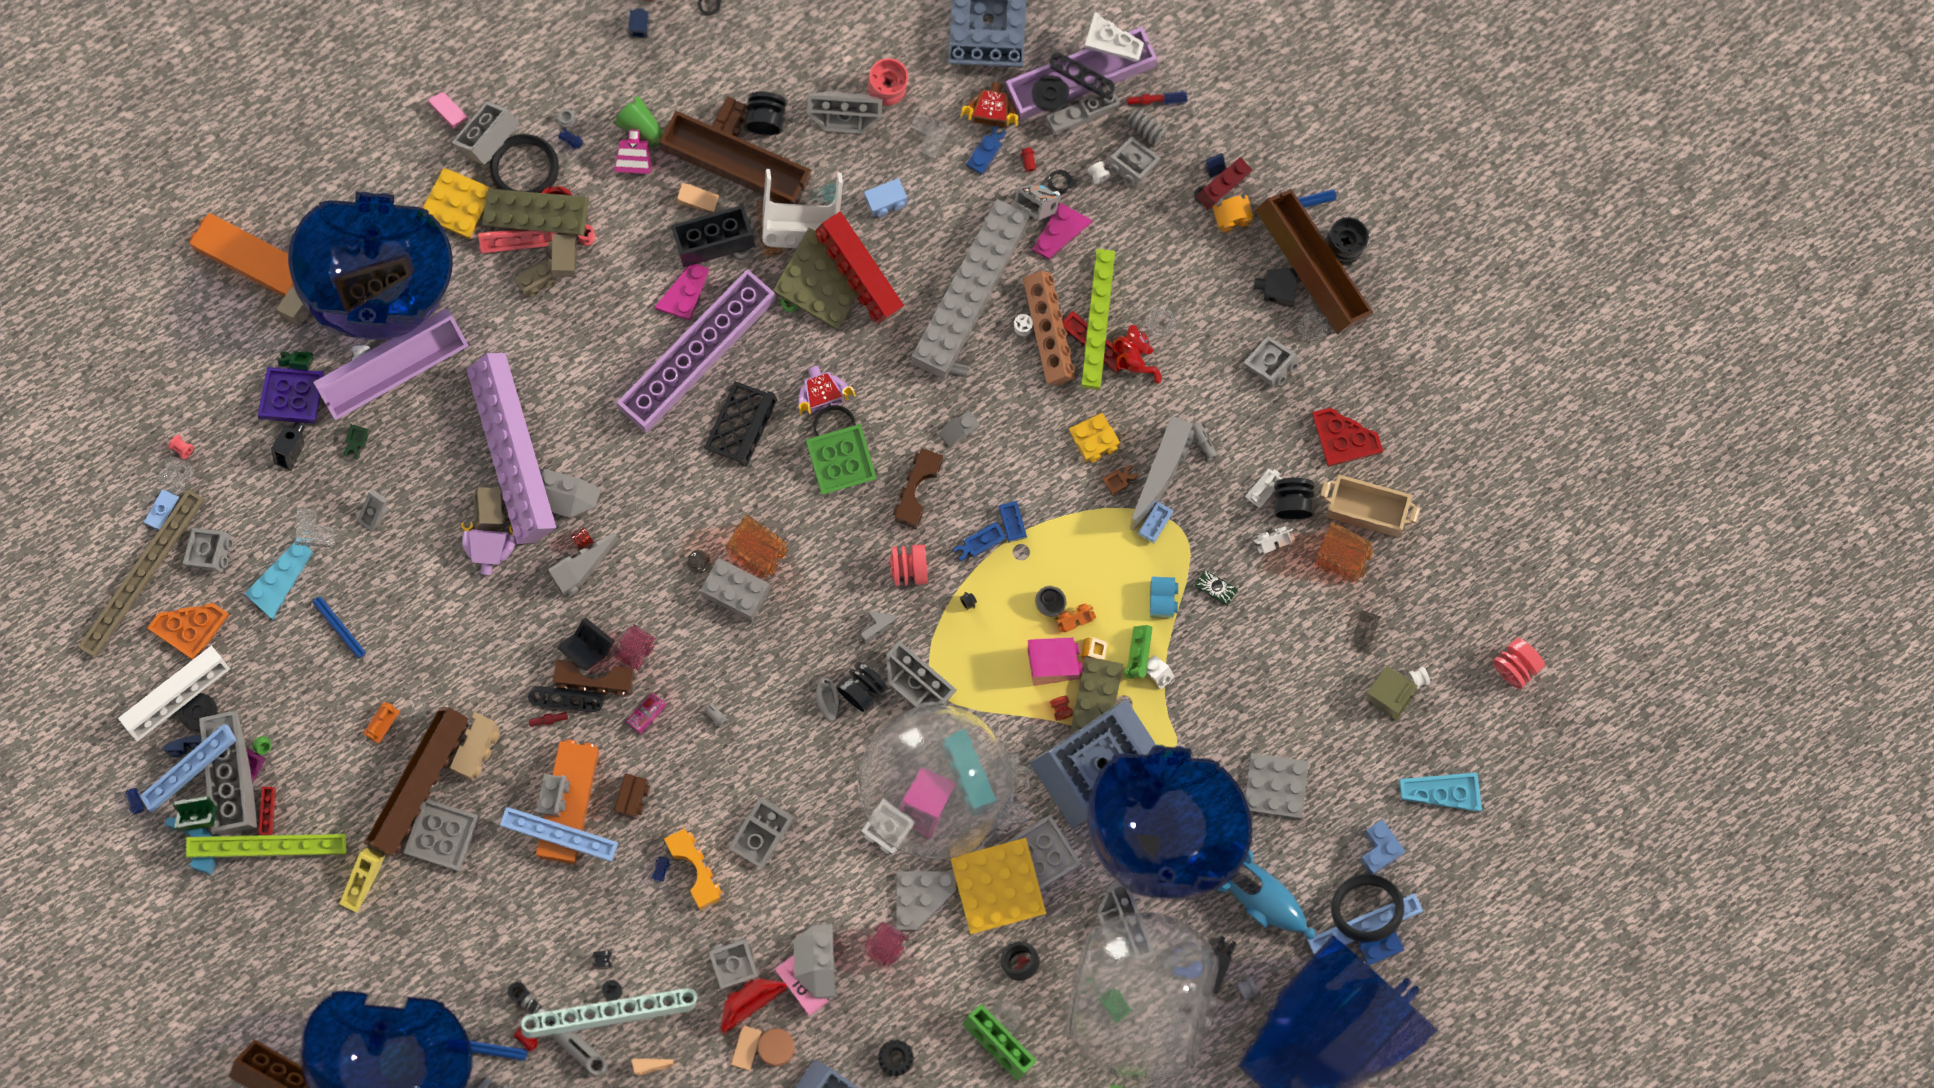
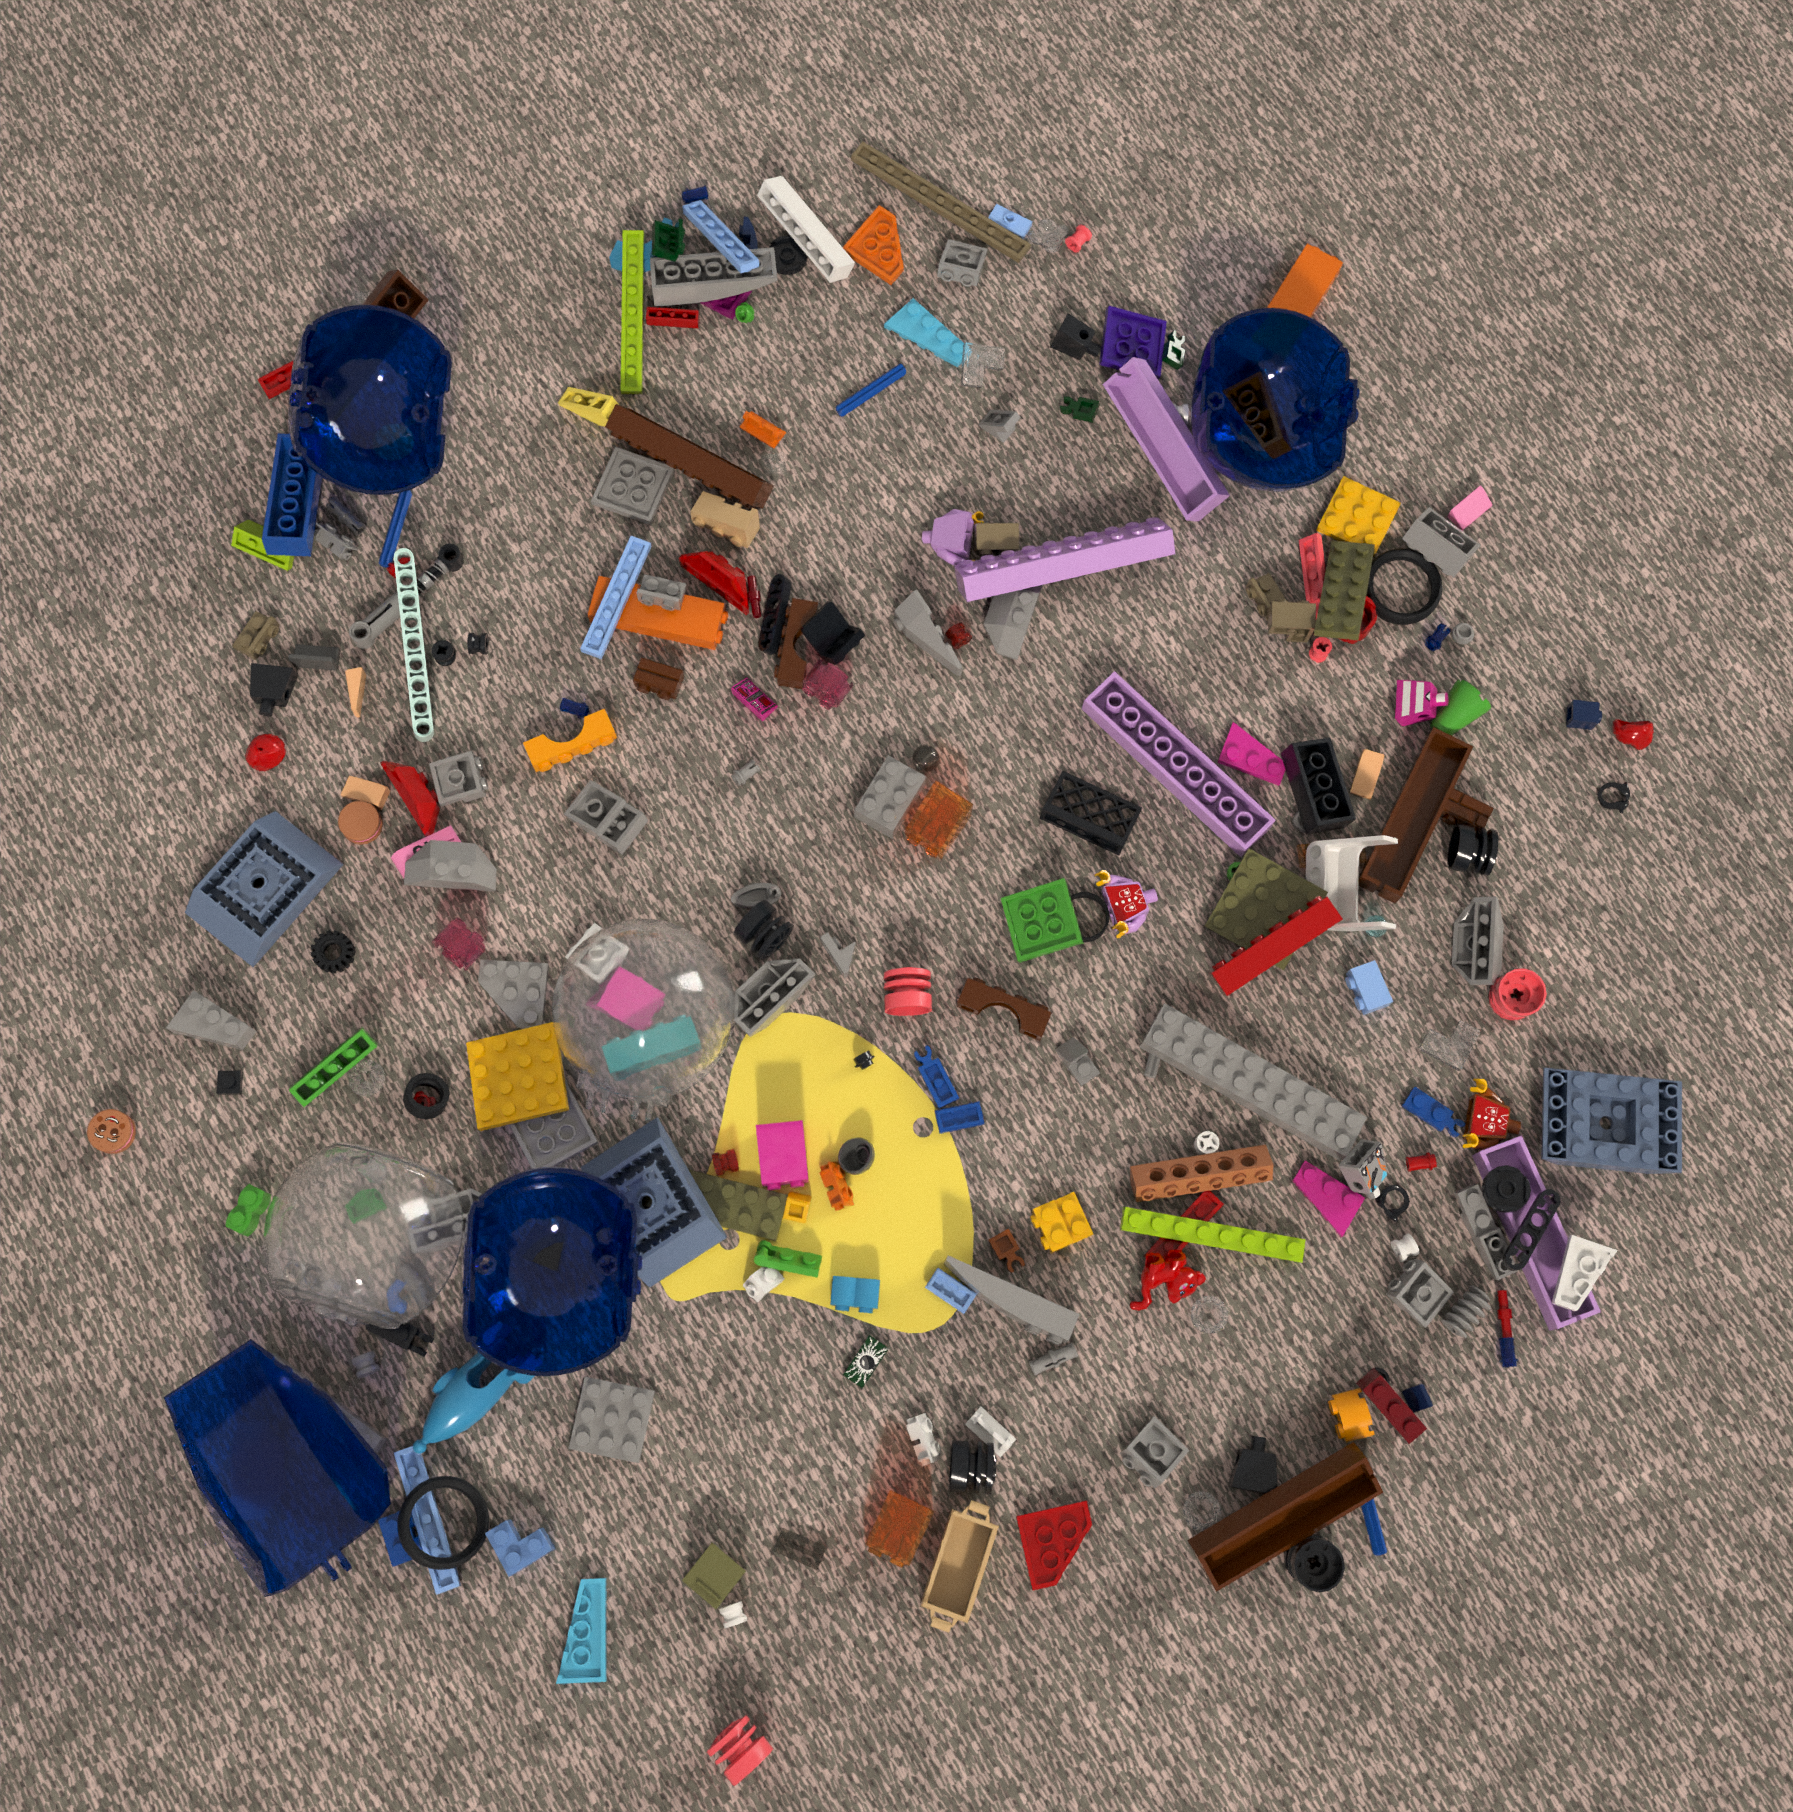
camera: 90 degrees right, 0 degrees up
(531, 748) = (718, 576): none -> red wedge

